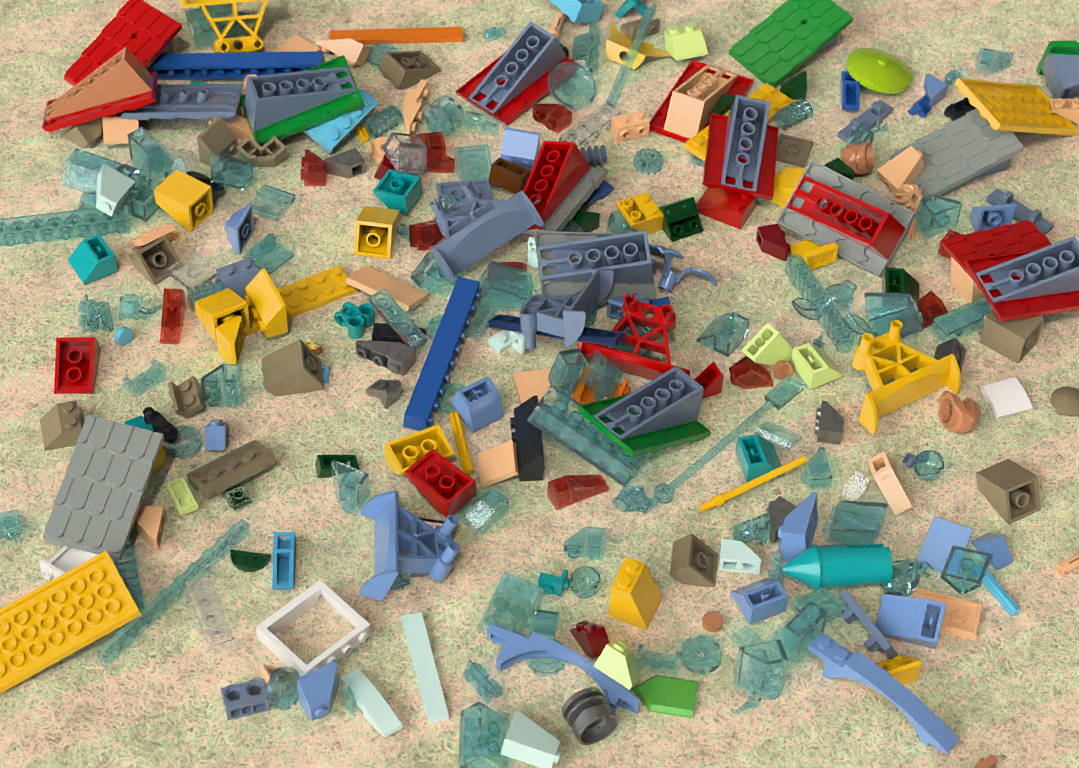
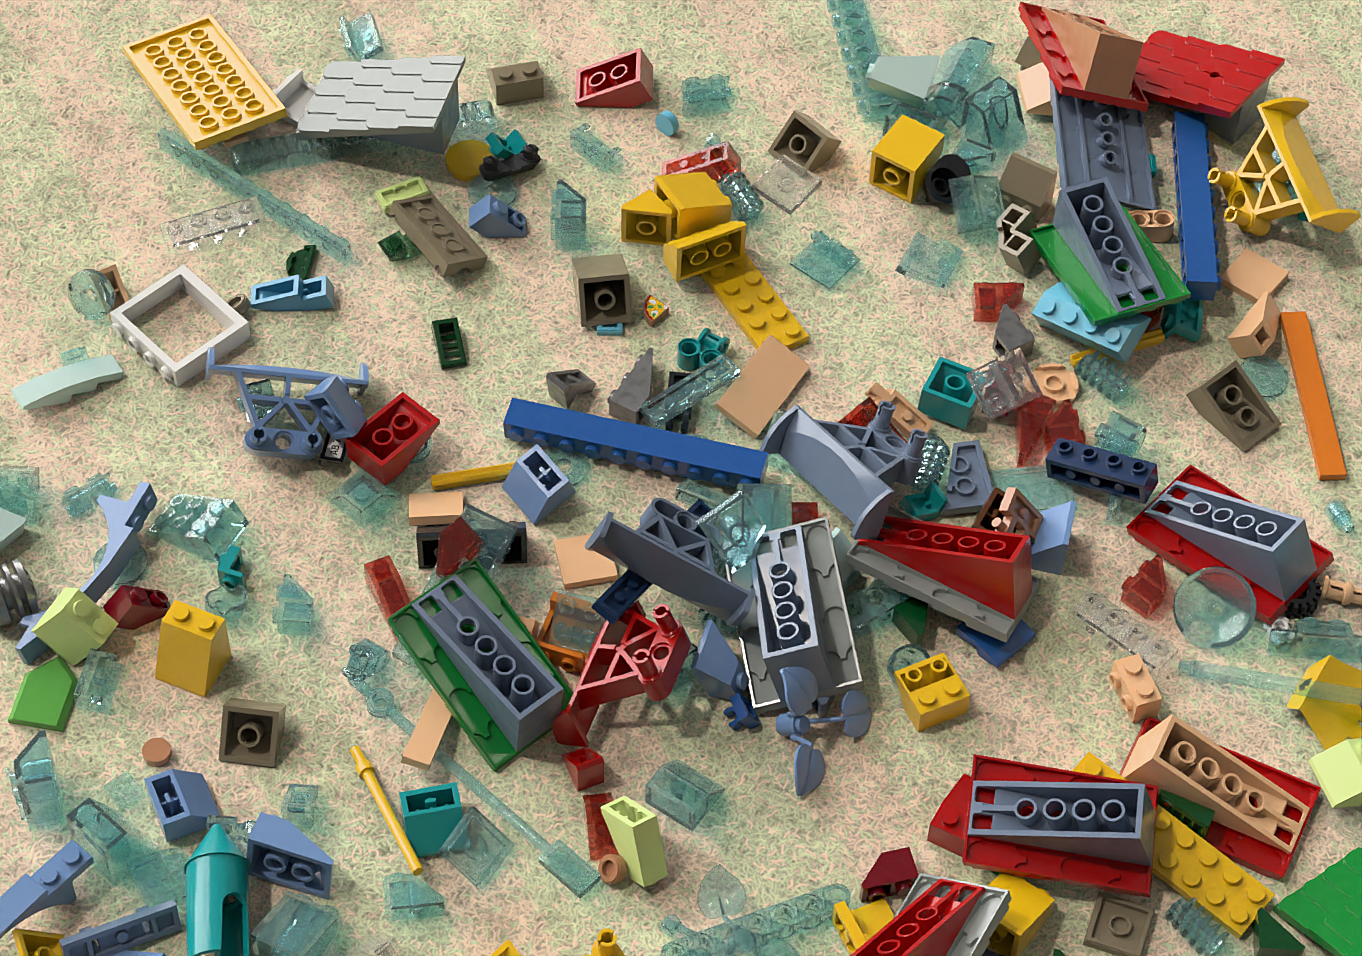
camera: 90 degrees right, 5 degrees up
(93, 259) = (799, 85): teal slope -> none
(129, 307) = (720, 124): clear light blue bracket -> none
(150, 524) = (353, 167): light nougat slope -> none
(152, 235) = (843, 134): light nougat tile -> none
(186, 397) = (547, 181): dark tan bracket -> none
(237, 275) = (769, 231): sand blue slope -> none
(240, 228) = (857, 222): medium blue slope -> none
(245, 702) = (88, 255): sand blue brick -> none
(291, 593) = (239, 303): none -> dark tan tile
(318, 690) = (81, 327): medium blue slope -> none
(350, 487) = (393, 345): clear light blue slope -> none
(376, 232) = (872, 360): yellow slope -> none
(409, 449) = (461, 426): yellow slope -> none
(413, 106) = (1146, 409): light nougat slope -> none
(414, 216) = (905, 415): none -> light nougat hinge
(425, 667) = (120, 438): light aqua tile -> none
(426, 505) = (336, 408): none -> medium blue slope
(471, 120) = (1102, 470): none -> dark blue brick
(517, 157) = (1018, 513): none -> nougat plate
(543, 623) = (162, 554): clear light blue brick -> none
(550, 276) = (734, 530): none -> clear light blue slope
(567, 370) = (587, 578): clear light blue slope -> none
(573, 415) = (456, 546): none -> clear red slope
(595, 155) = (1055, 627): sand blue piece -> none
(648, 161) = (1059, 712): clear light blue gear -> none
(681, 219) = (932, 747): dark green slope -> none
(684, 460) = (427, 733): none -> light nougat tile
(697, 664) = (103, 747): clear light blue plate -> none
(737, 557) = (258, 782): light aqua slope -> none
(778, 511) = (330, 836): flat silver slope -> none
(814, 365) = (620, 906): yellowish green slope -> none
(830, 424) = (501, 921): flat silver slope -> none

